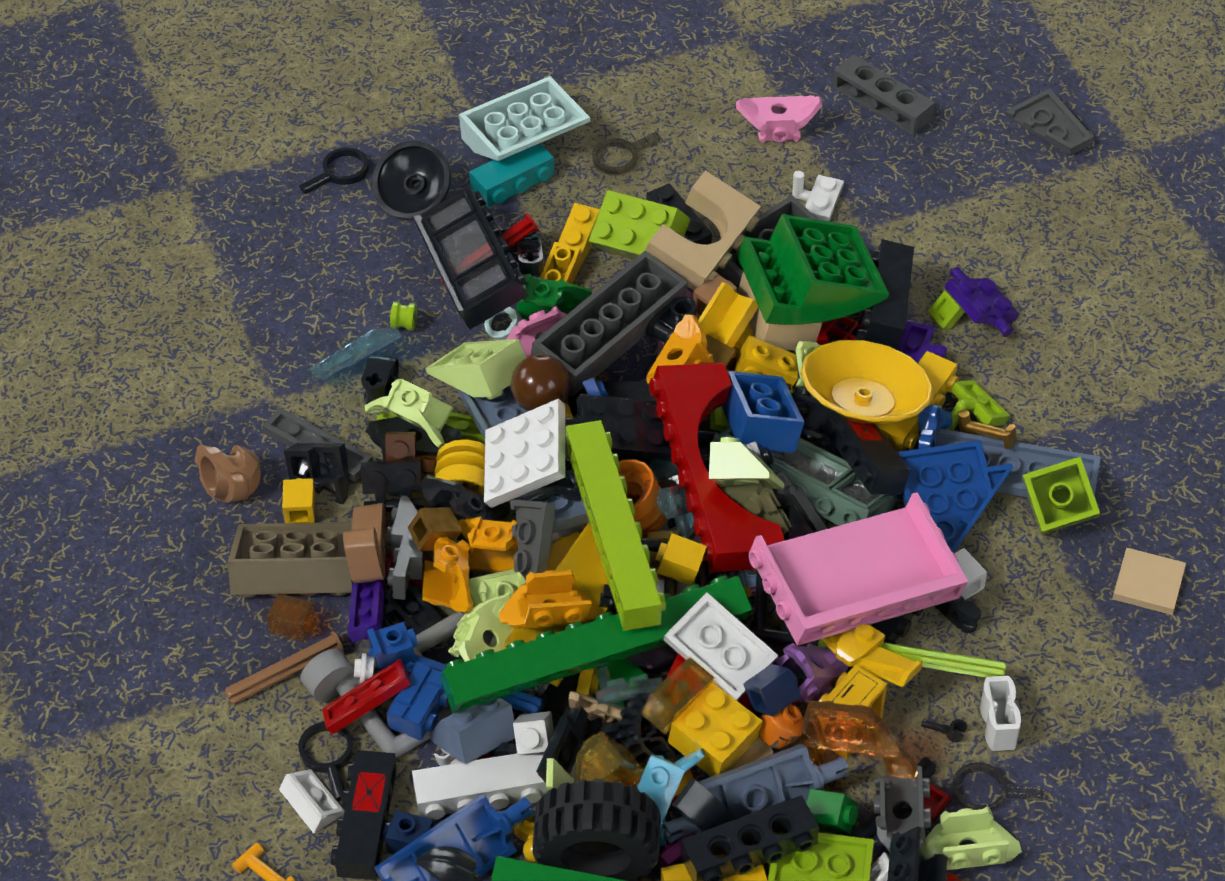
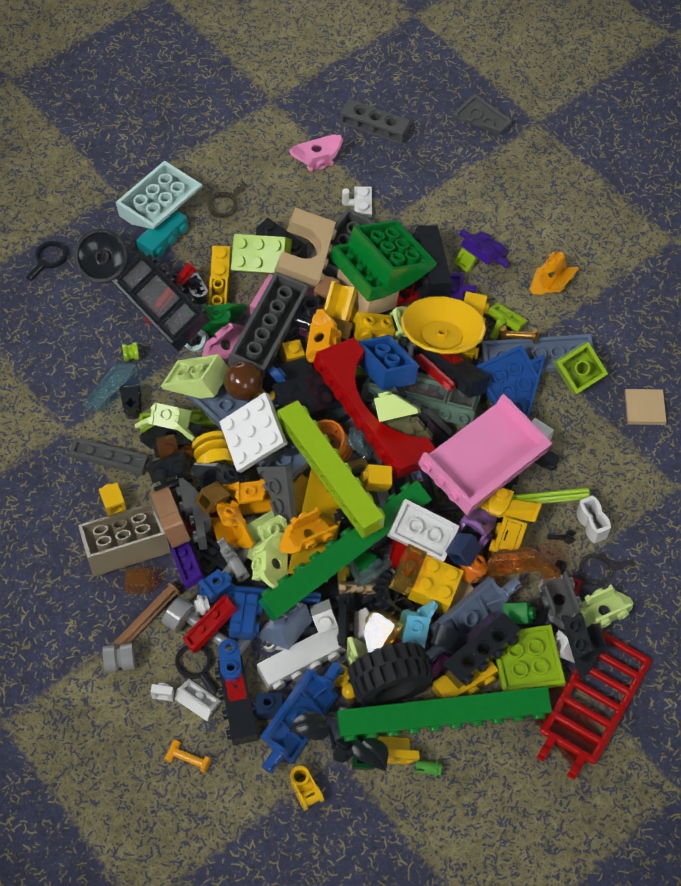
camera: 20 degrees left, 10 degrees up
(217, 709) = (121, 657): none -> light grey wheel
(234, 475) = (66, 492): medium nougat helmet -> none
(264, 773) = (162, 692): none -> white plate
(323, 463) = (118, 470): black slope -> none
(375, 750) = (230, 658): none -> blue plate
(433, 620) = (233, 560): none -> light grey bar
(633, 367) = (291, 351): none -> yellow brick
(833, 446) = (435, 372): none -> red axle
(932, 420) = (487, 343): blue bar -> none
(1055, 371) = (562, 275): none -> light orange piece

